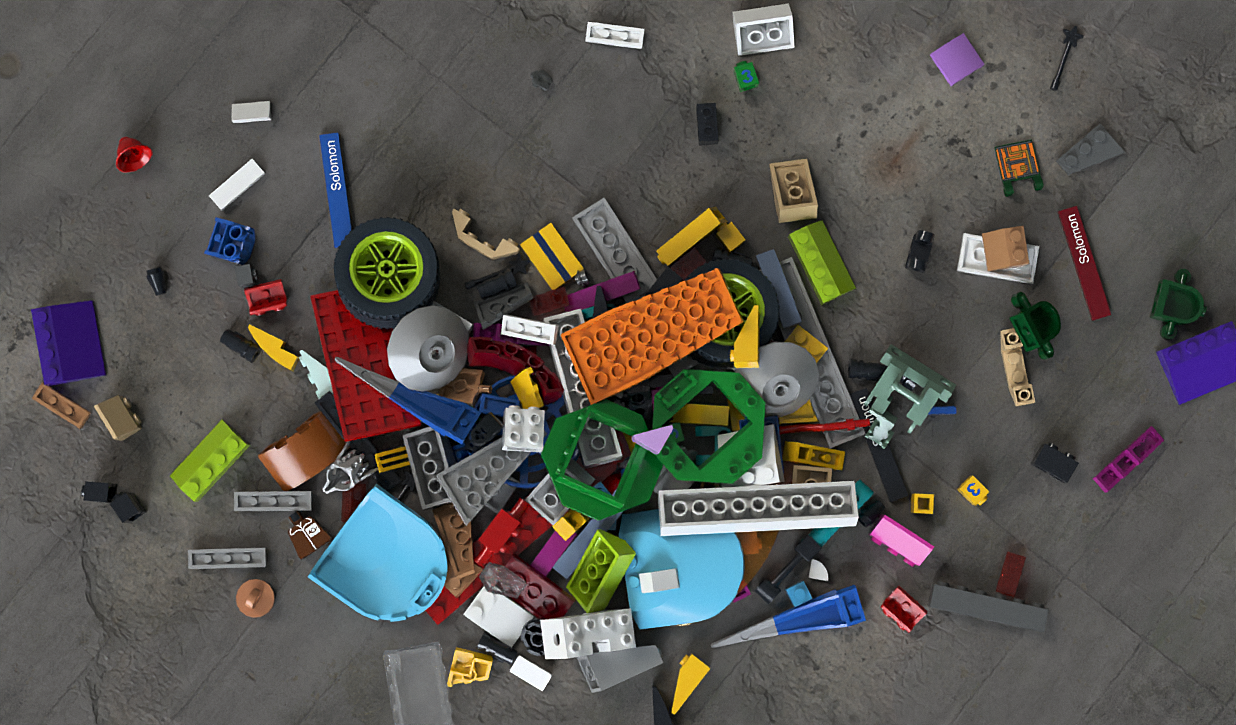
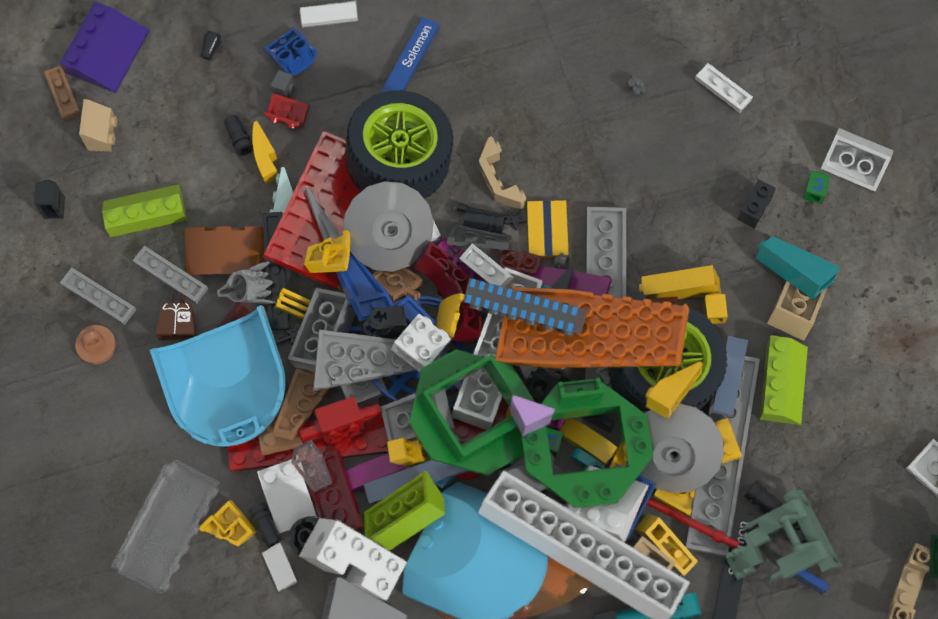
camera: 35 degrees right, 15 degrees down
(98, 491) = (35, 170): black piece -> none
(399, 405) = (329, 255): none -> yellow slope
(587, 347) = (525, 306): none -> dark grey brick
(659, 580) = (449, 553): white slope -> none
(773, 158) = (797, 266): none -> teal slope
(919, 251) = (882, 426): black piece -> none

